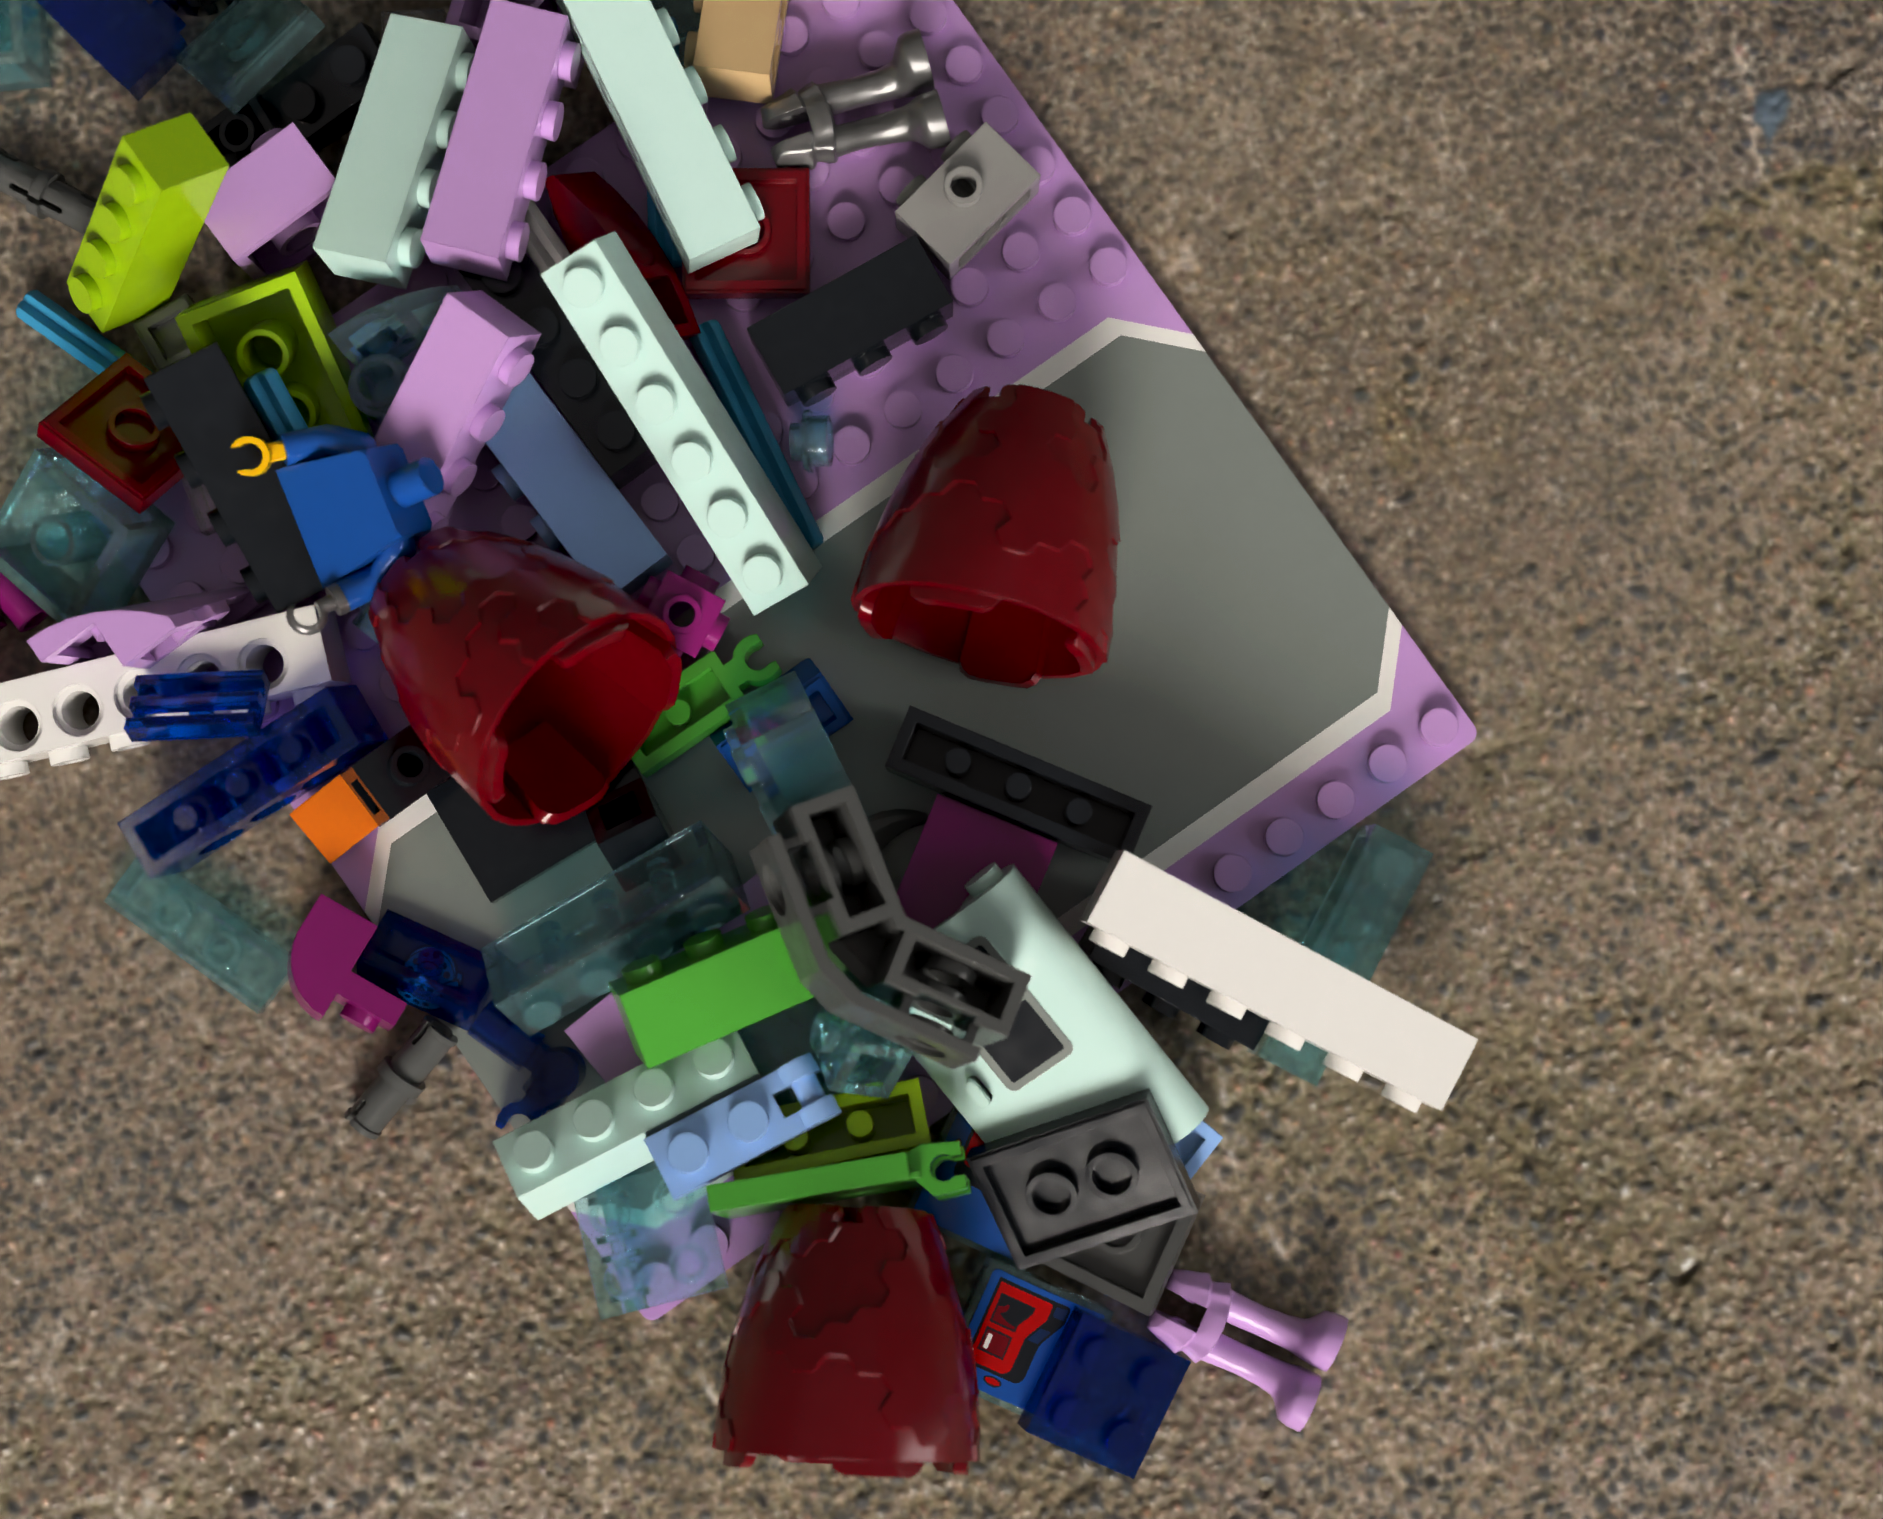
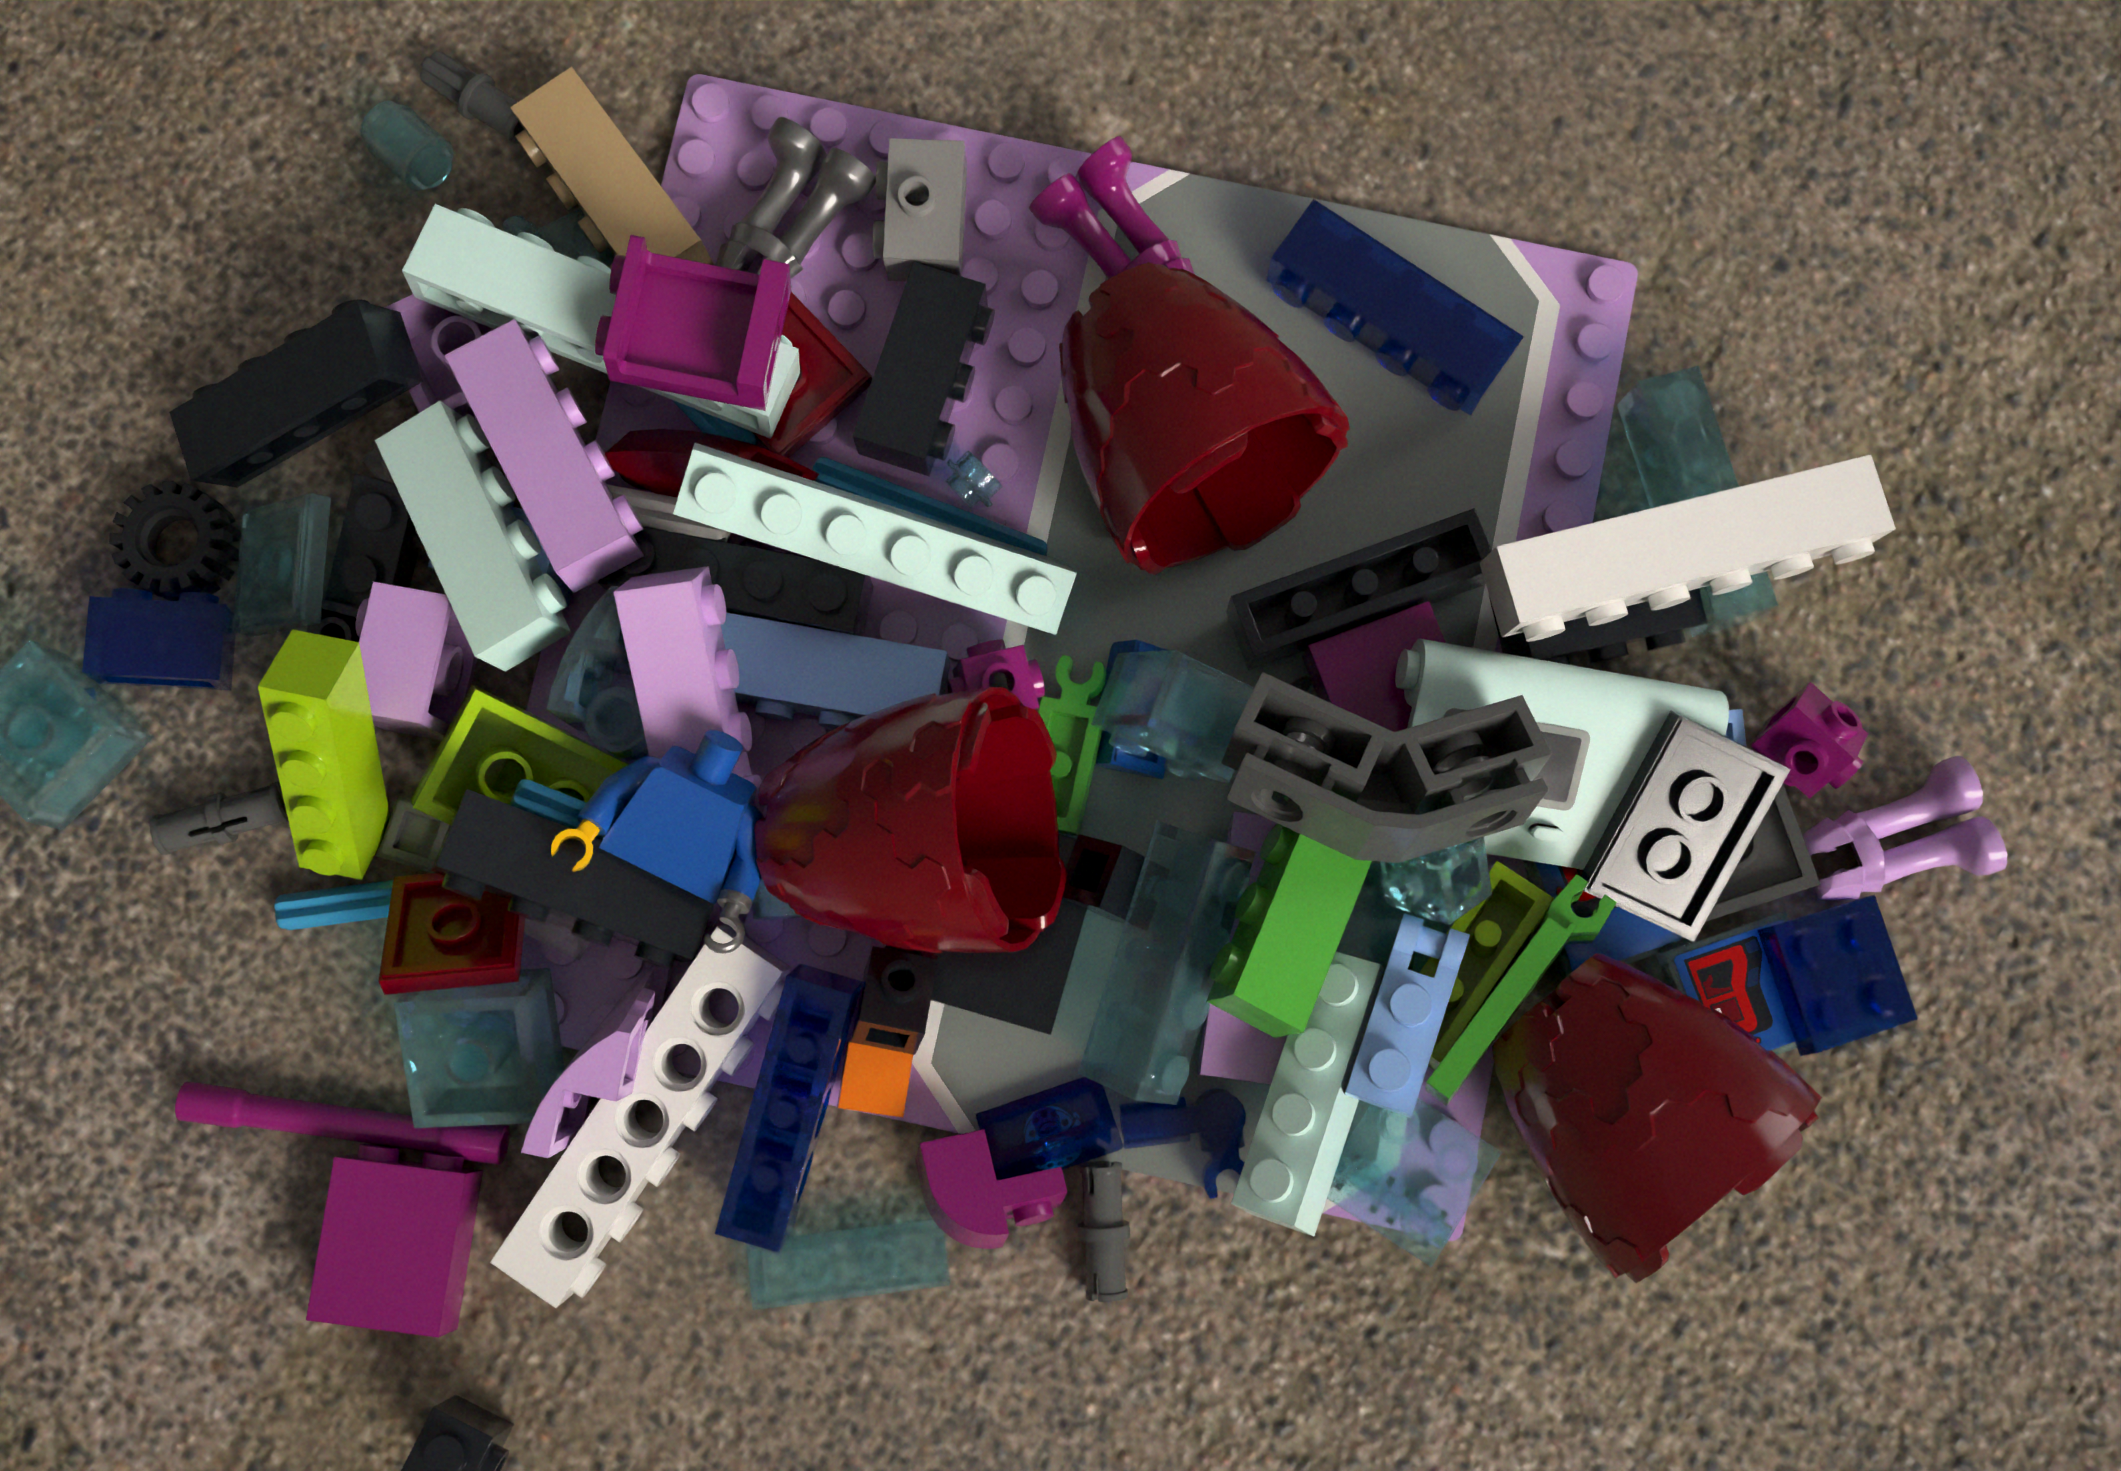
camera: 40 degrees left, 5 degrees down
(199, 696) = (692, 1076): clear blue tile -> none
(693, 141) = (694, 326): none -> magenta panel
(1127, 300) = (1104, 179): none -> magenta piece
(1249, 1208) = (1813, 740): none -> magenta brick
(1250, 597) = (1391, 308): none -> clear blue brick

